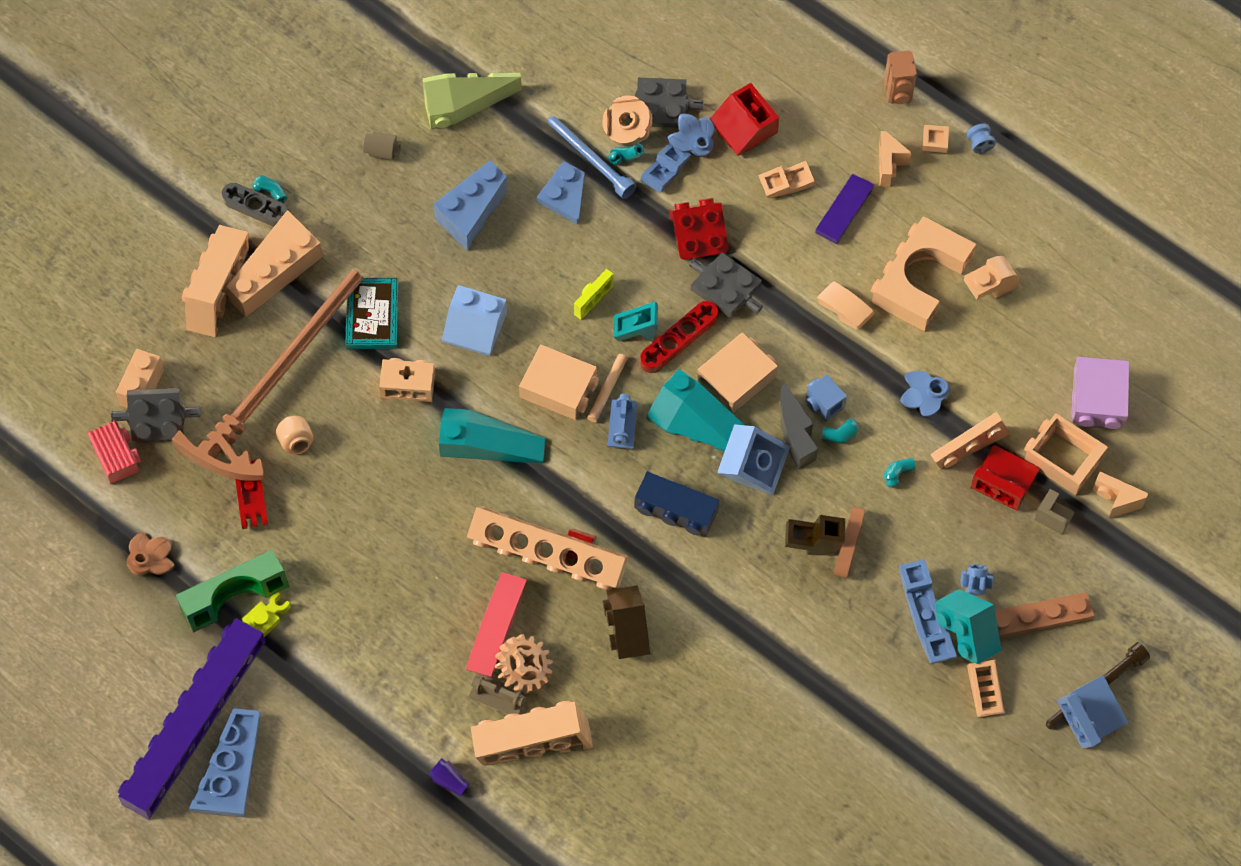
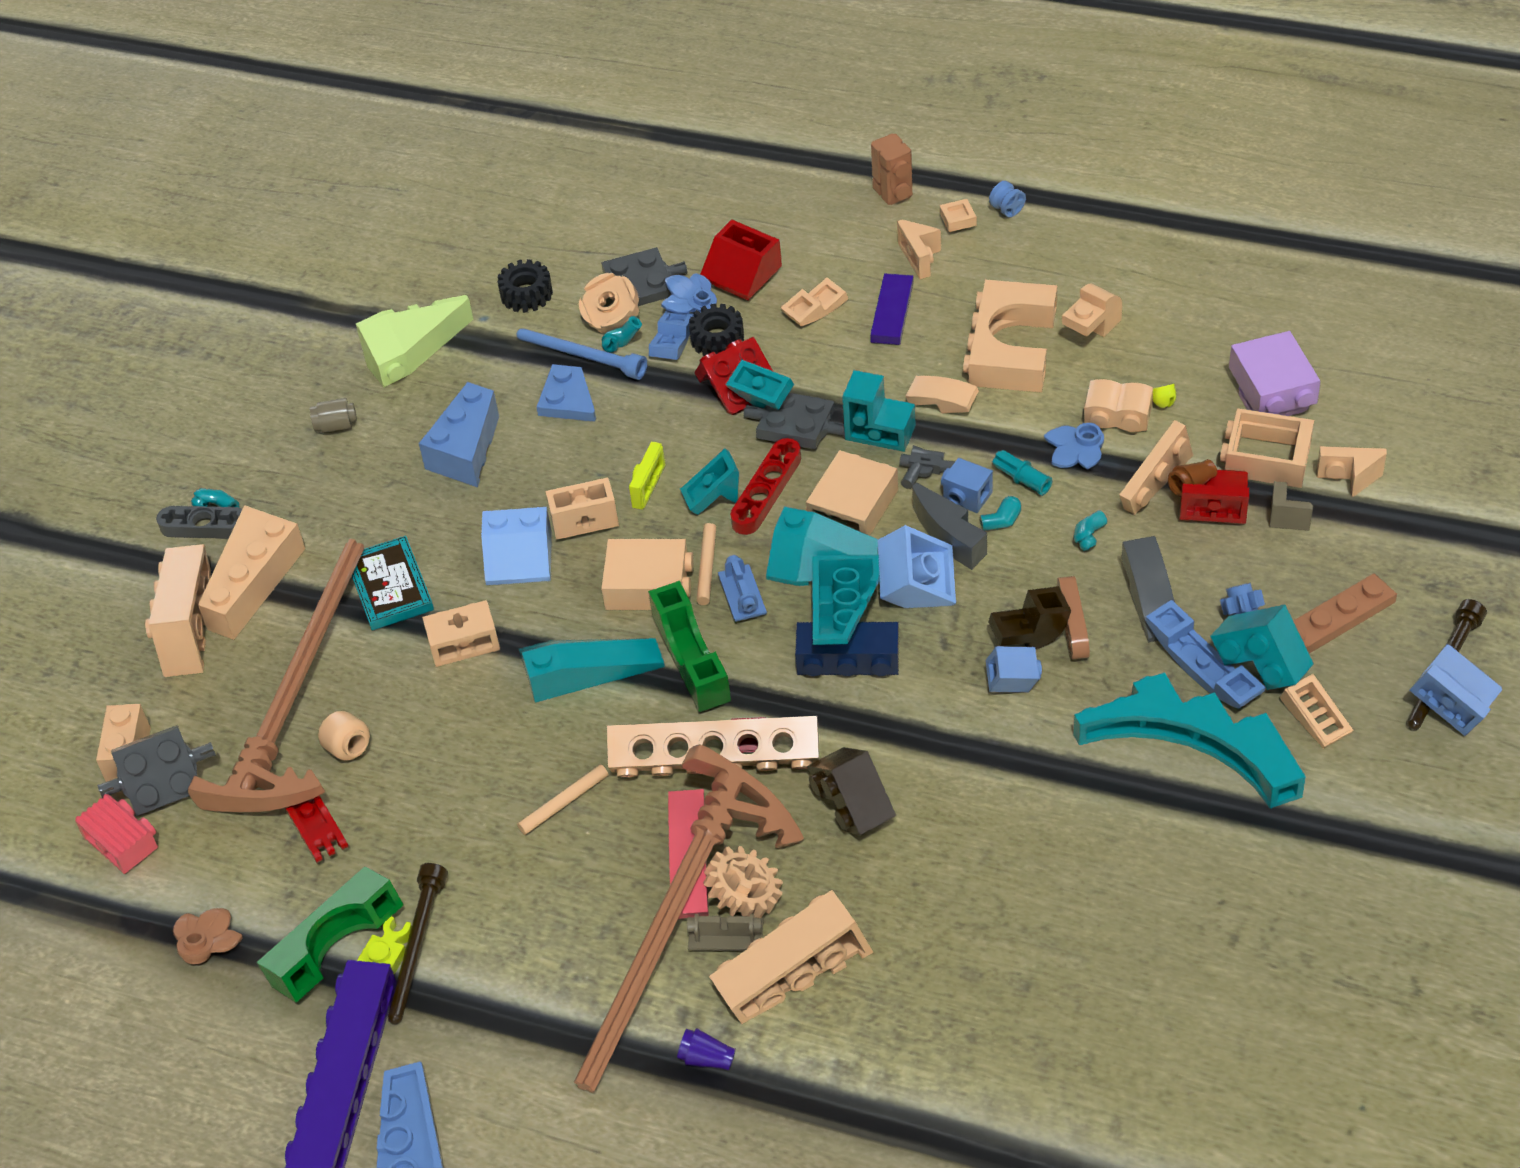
camera: 15 degrees left, 15 degrees down
(314, 575) = (430, 880): none -> dark brown piece
(428, 545) = (562, 799): none -> light nougat bar
(512, 620) = (708, 831): none -> nougat piece
(533, 307) = (582, 508): none -> light nougat brick
(563, 458) = (698, 667): none -> green arch
(571, 88) = (525, 297): none -> black tyre
(686, 462) = (840, 594): none -> teal wedge
(700, 165) = (712, 319): none -> black tyre
(707, 249) = (759, 385): none -> teal slope
(782, 309) = (872, 417): none -> teal brick
(784, 570) = (1013, 669): none -> medium blue brick
(804, 362) = (922, 464): none -> dark grey piece
(873, 400) = (1022, 472): none -> teal axle
(898, 665) = (1202, 723): none -> teal arch
(918, 532) = (1147, 578): none -> dark grey slope
(972, 371) = (1118, 405): none -> light nougat brick
(993, 458) = (1191, 474): none -> dark orange cone
(1012, 373) = (1164, 396): none -> neon yellow hinge

